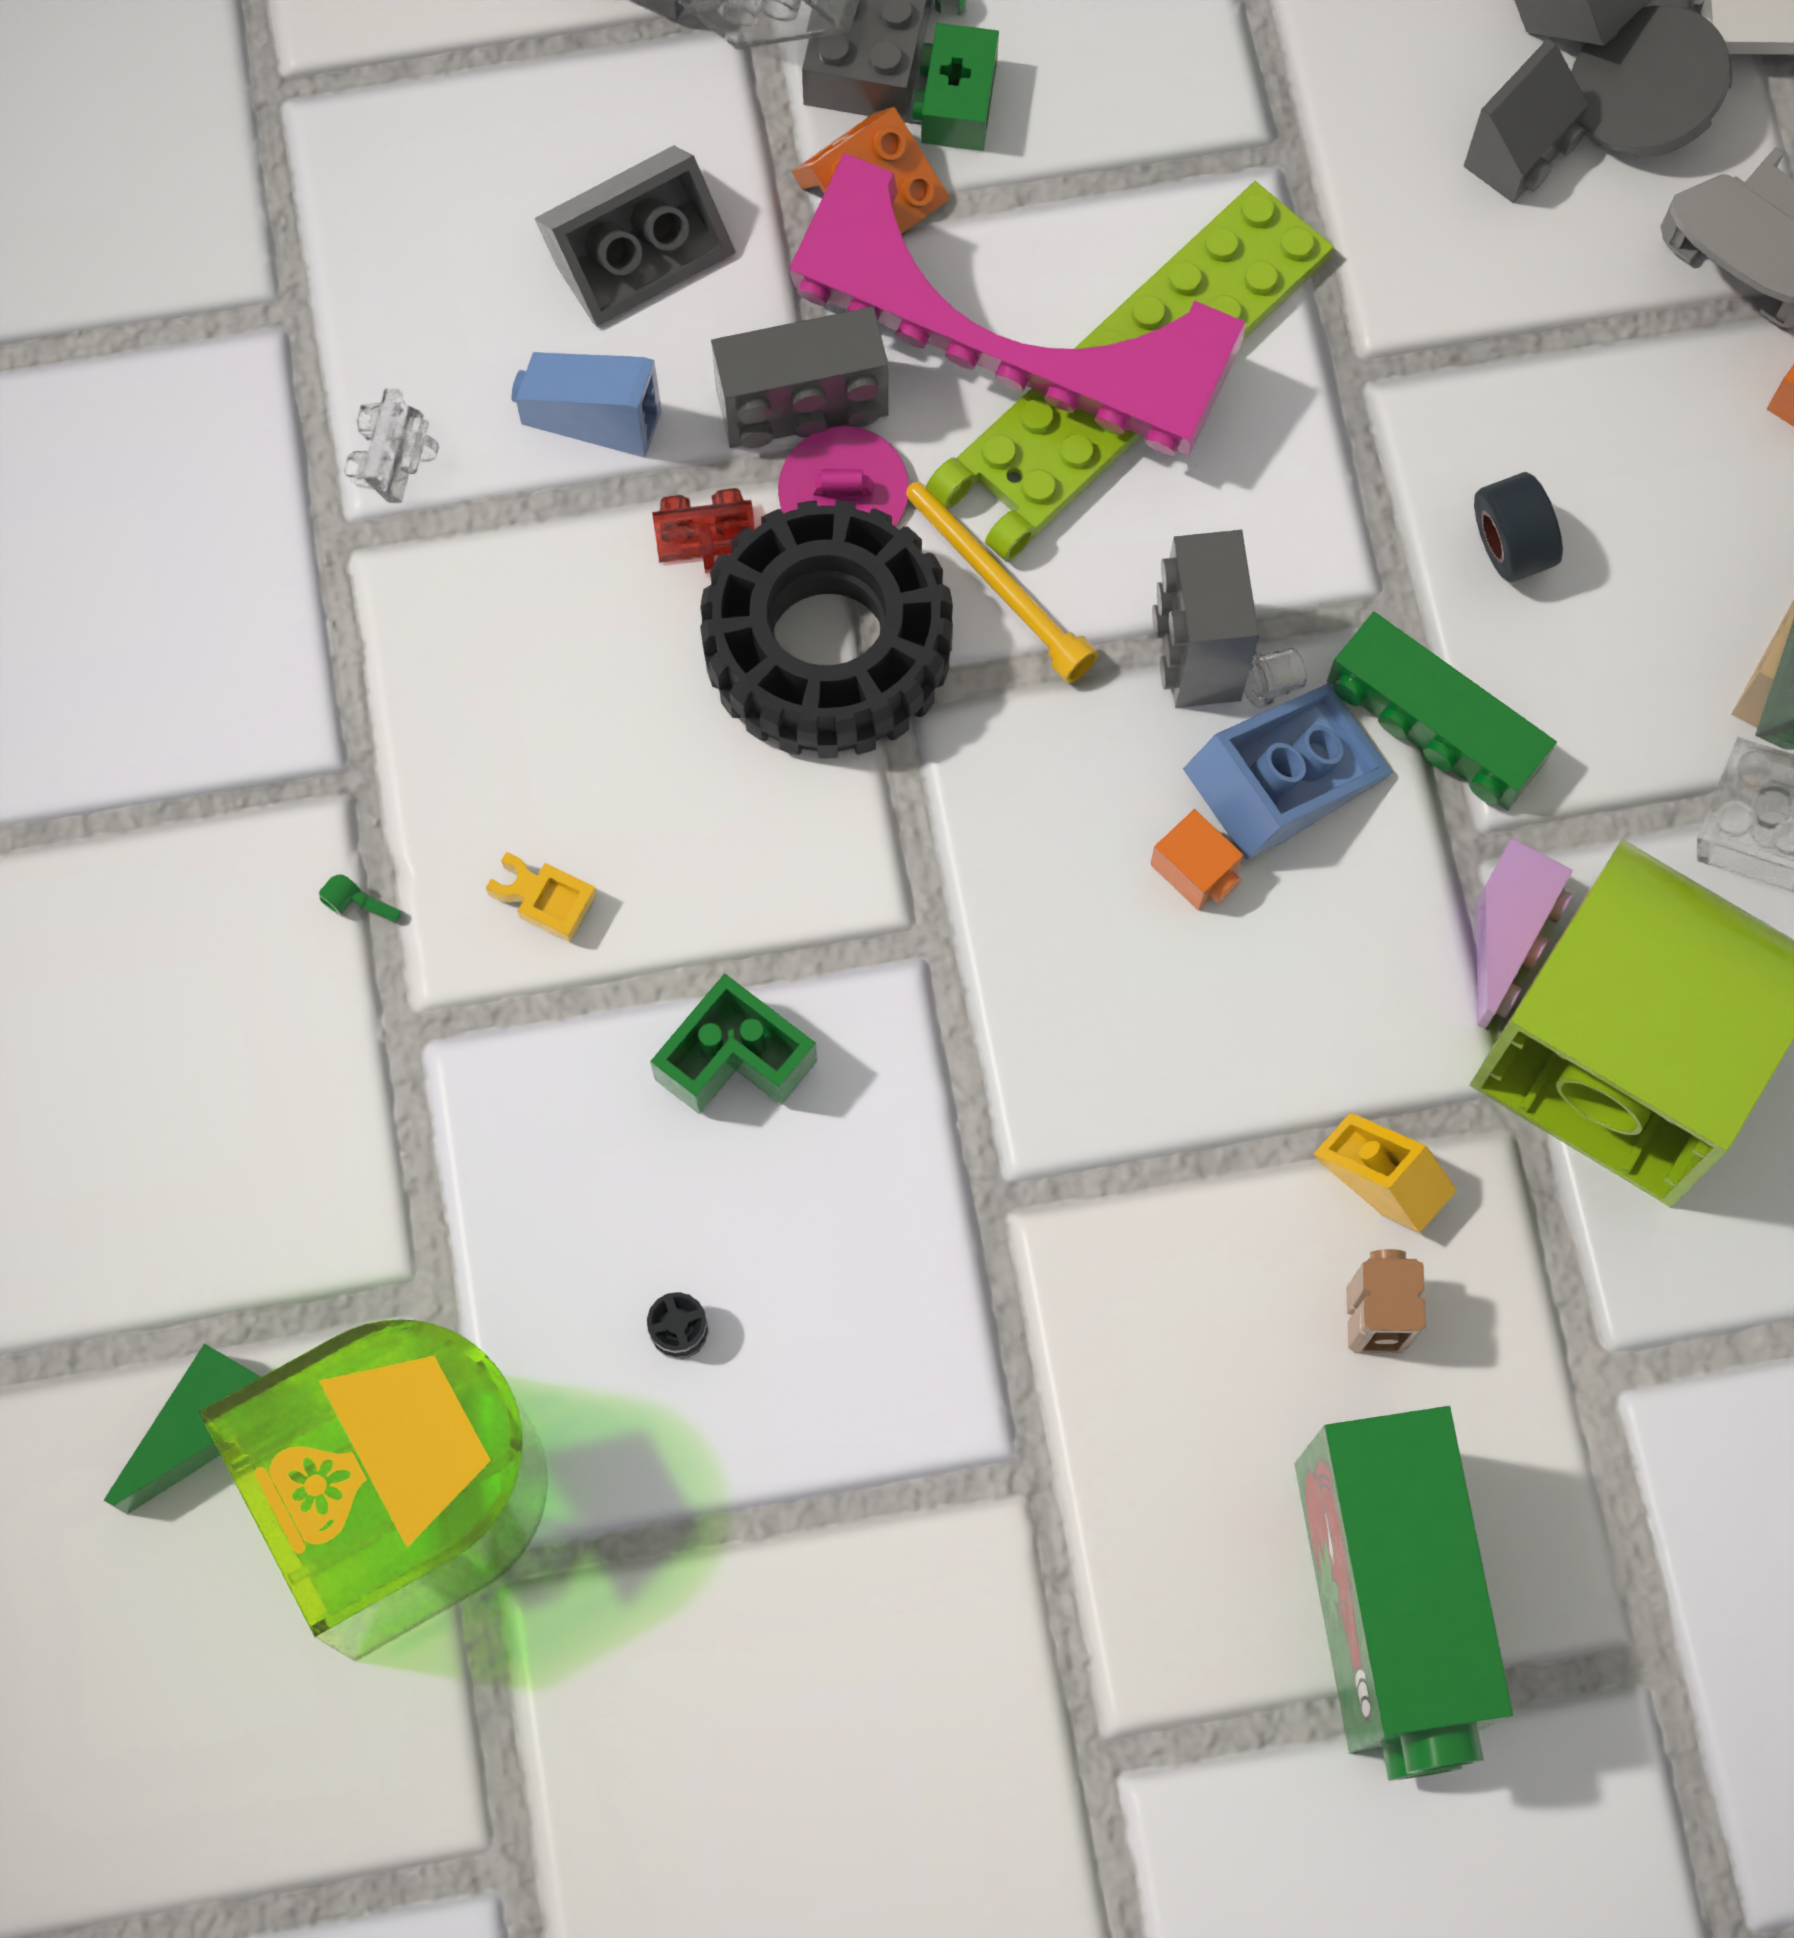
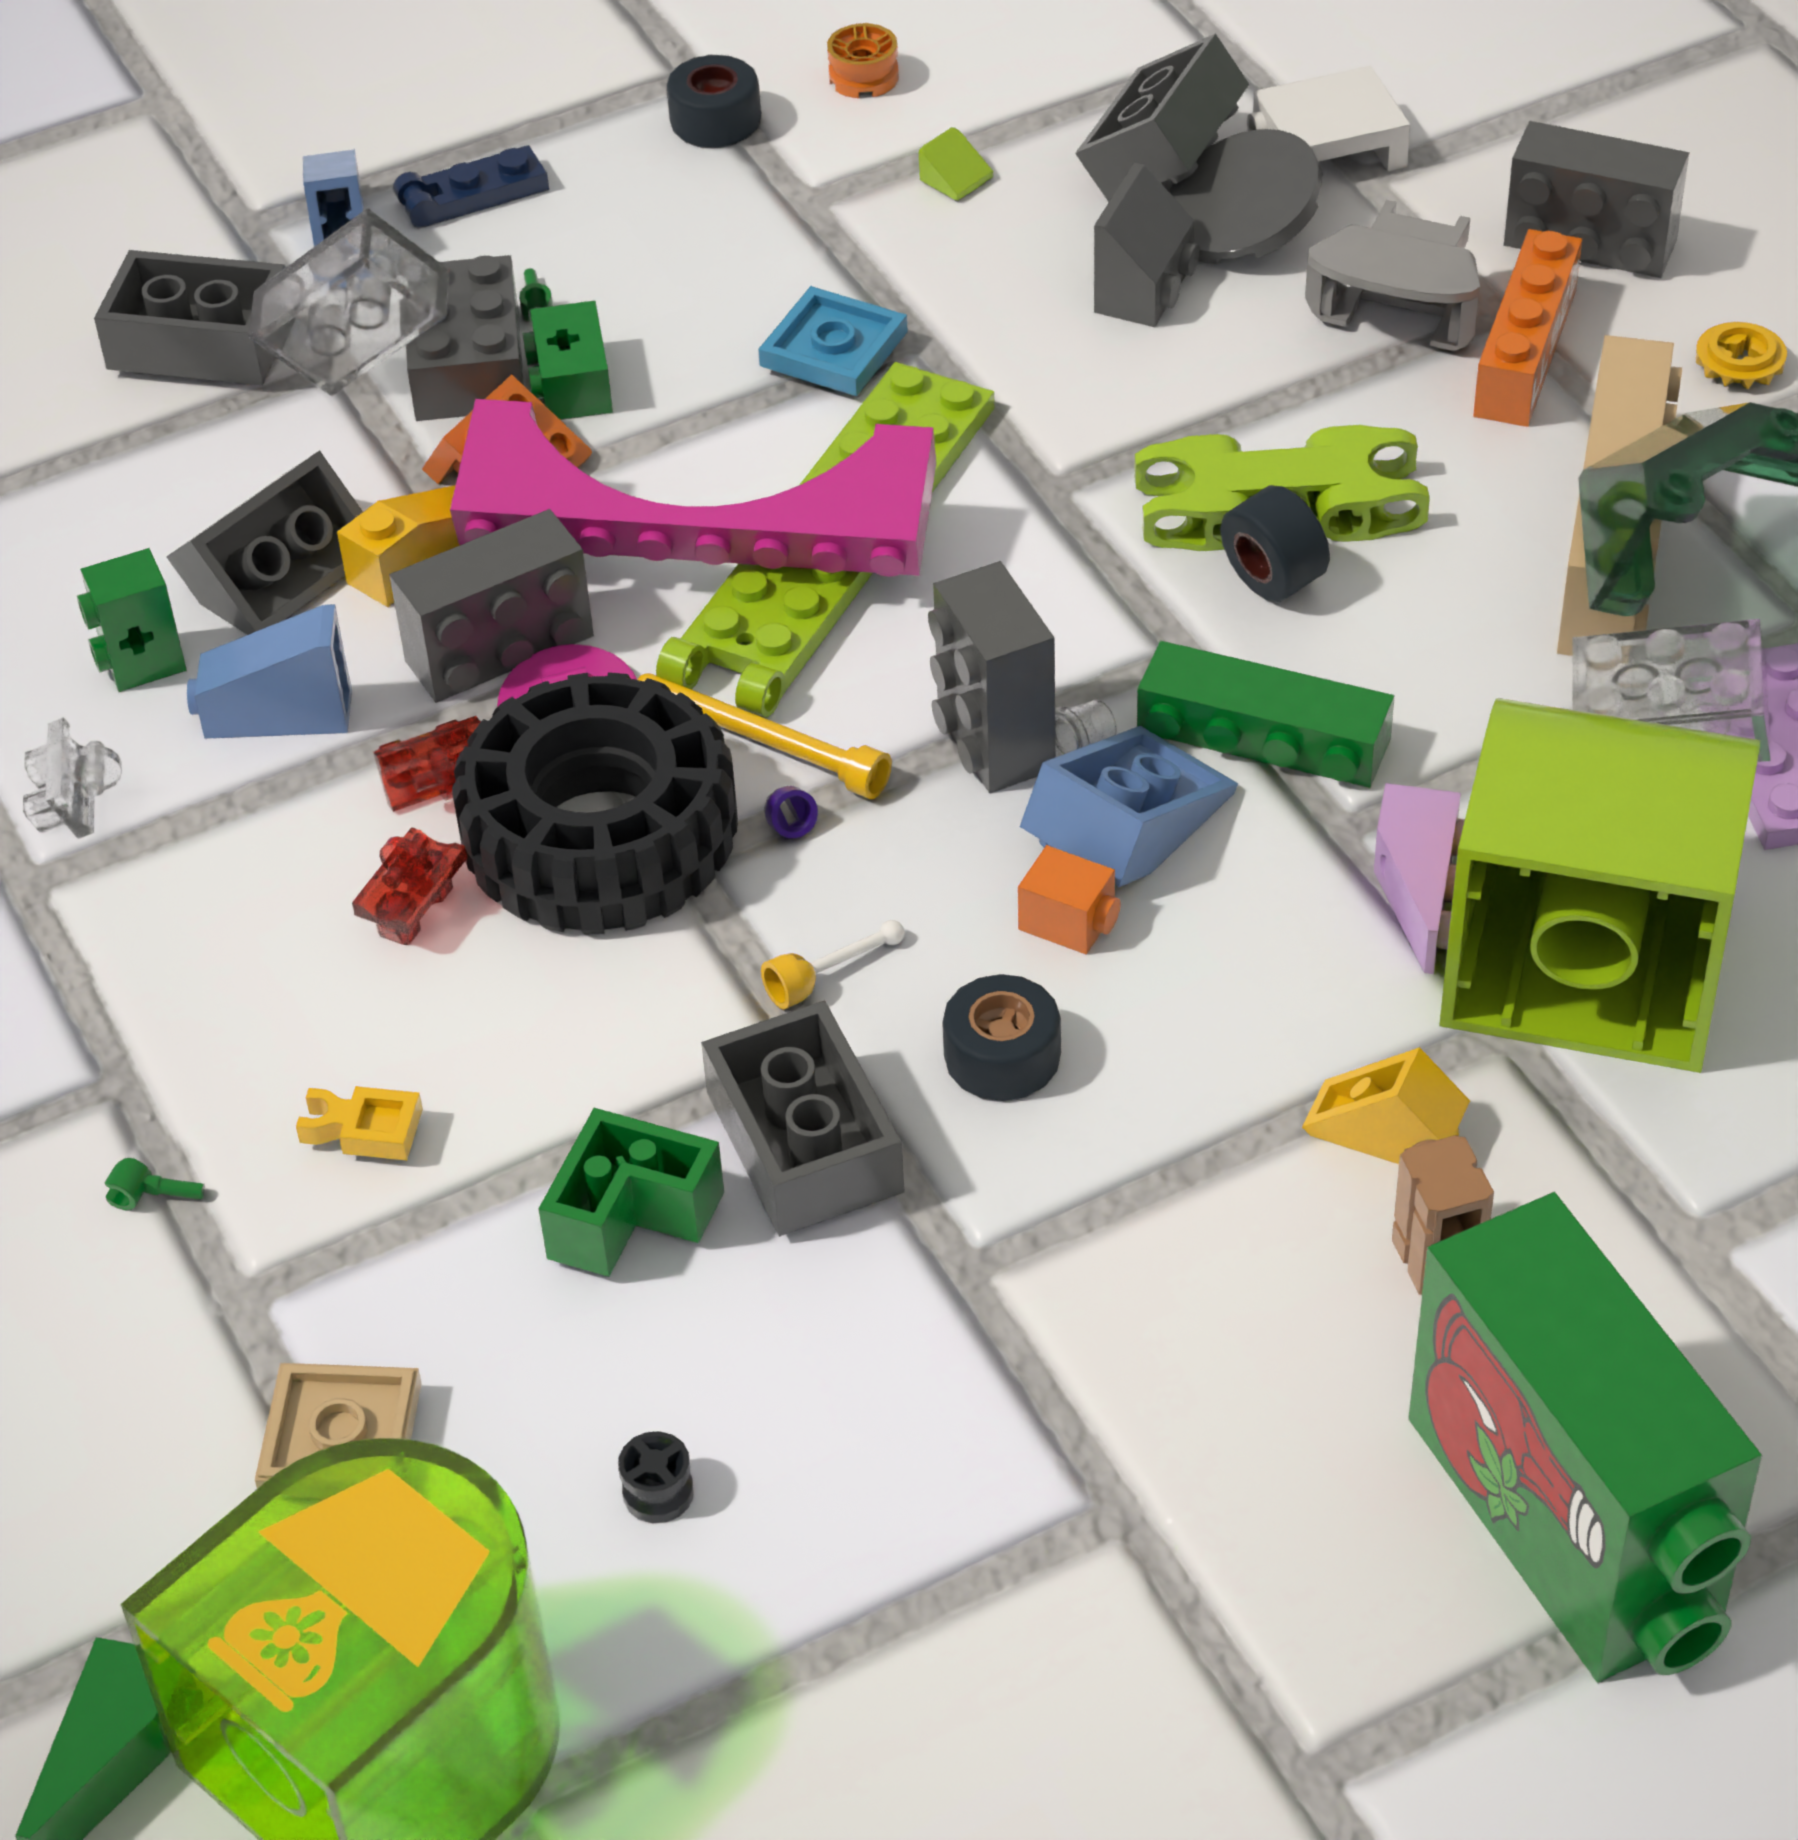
camera: 15 degrees left, 25 degrees down
(443, 1196) = (334, 1406): none -> tan plate
(482, 292) = (132, 620): none -> green brick
(646, 660) = (410, 880): none -> clear red hips
(747, 260) = (395, 536): none -> yellow slope
(898, 1023) = (803, 1118): none -> dark grey brick
(940, 862) = (792, 978): none -> yellow hinge
(996, 694) = (801, 806): none -> dark purple hinge
(1101, 968) = (1002, 1037): none -> black wheel
(1207, 135) = (833, 340): none -> dark azure plate
(1566, 453) = (1330, 474): none -> lime piece

